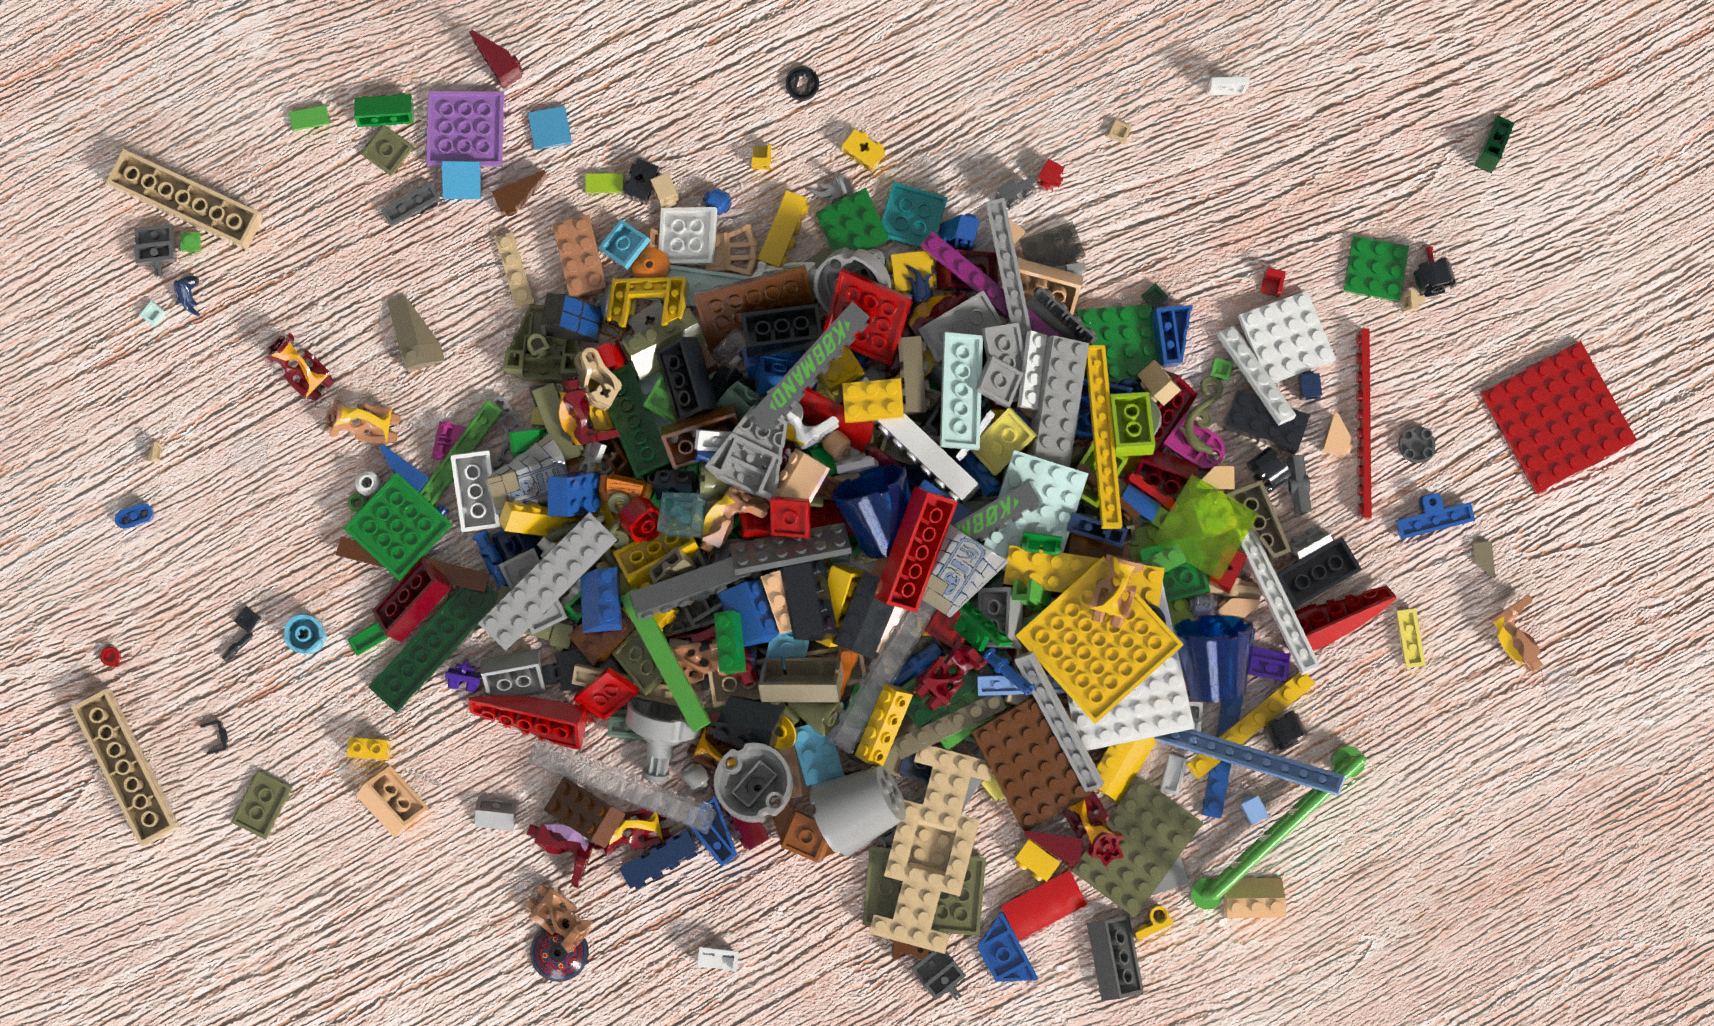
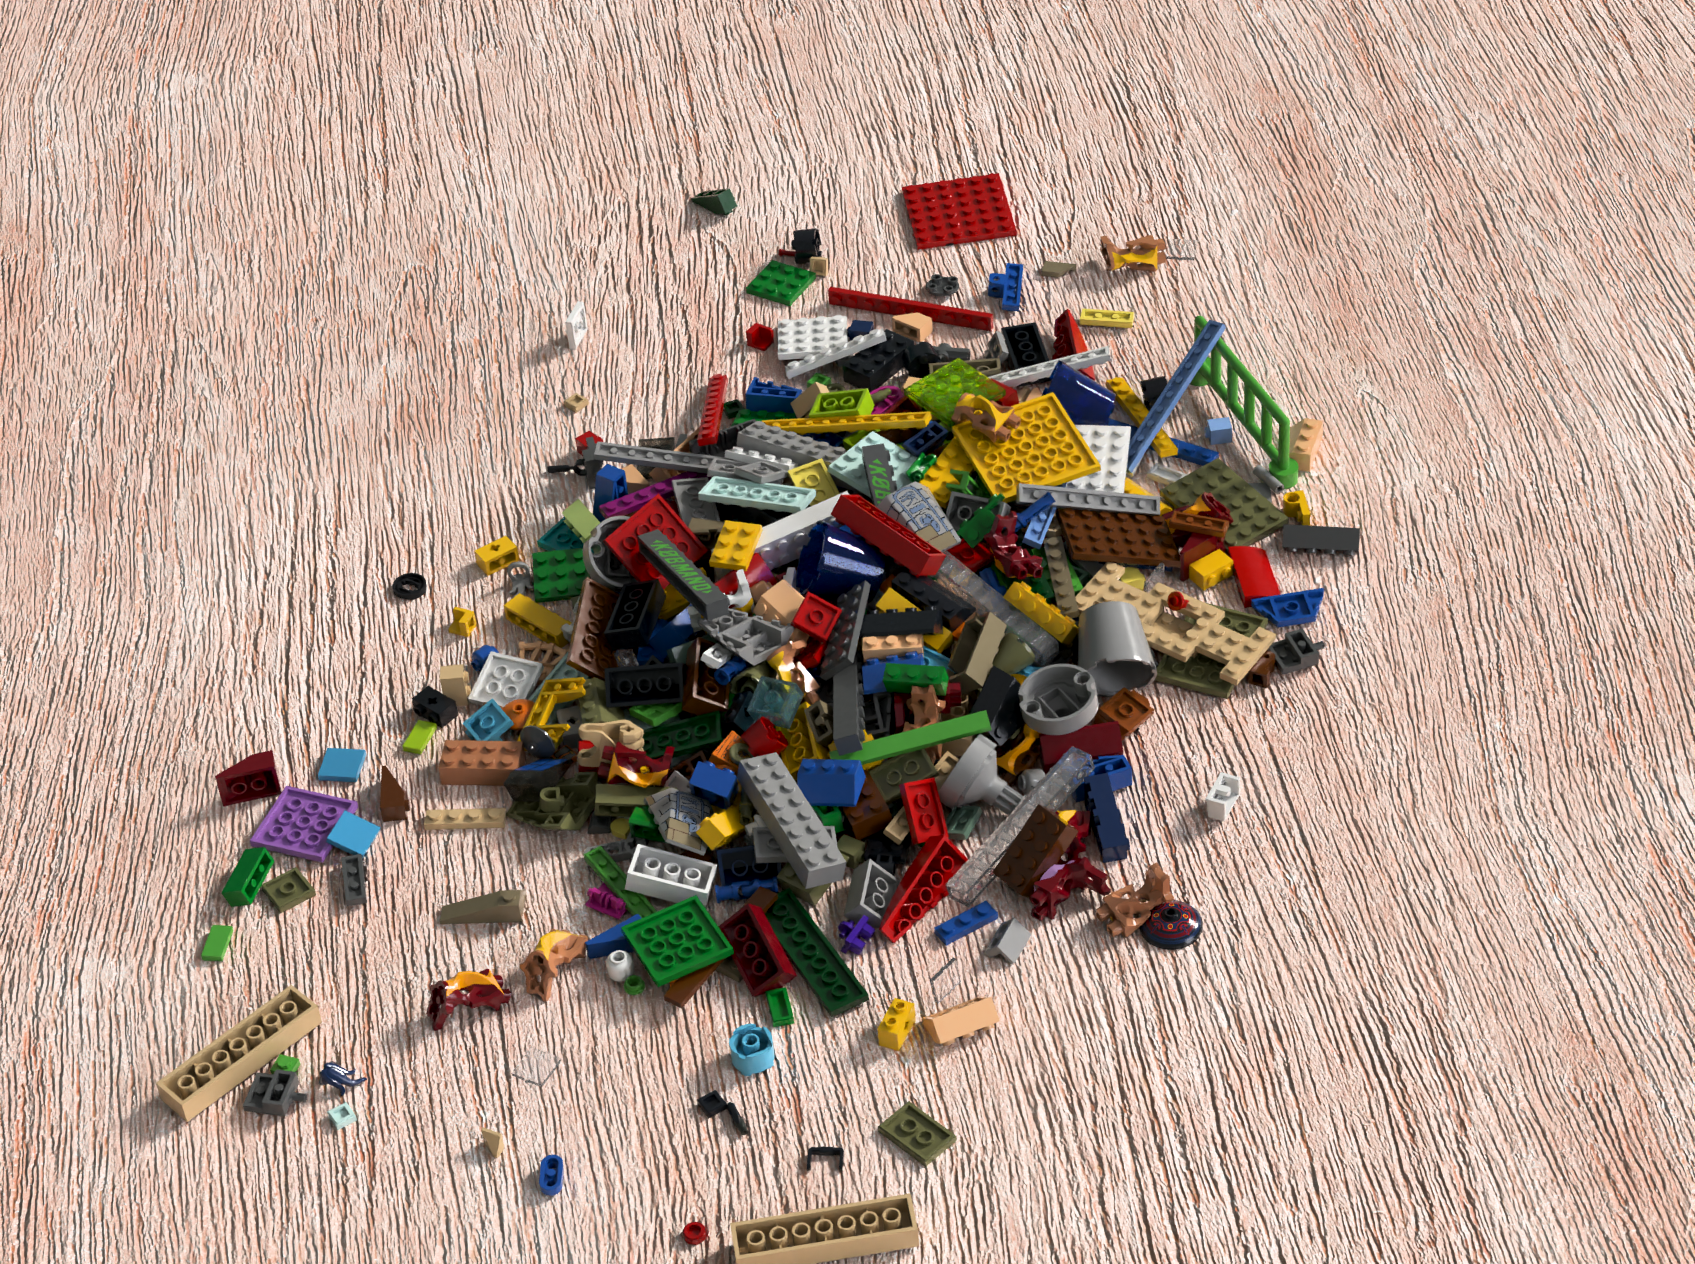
camera: 65 degrees left, 40 degrees down
(510, 768) = (966, 923): none -> blue plate
(914, 224) = (580, 520): none -> yellowish green brick
(944, 849) = (1176, 601): none -> red plate
(993, 812) = (1156, 576): none -> clear piece
(1016, 176) = (565, 468): none -> black piece
(1068, 838) = (1198, 524): none -> dark orange tile
(1114, 286) = (712, 410): none -> red plate
(1185, 885) = (1267, 478): none -> light grey piece

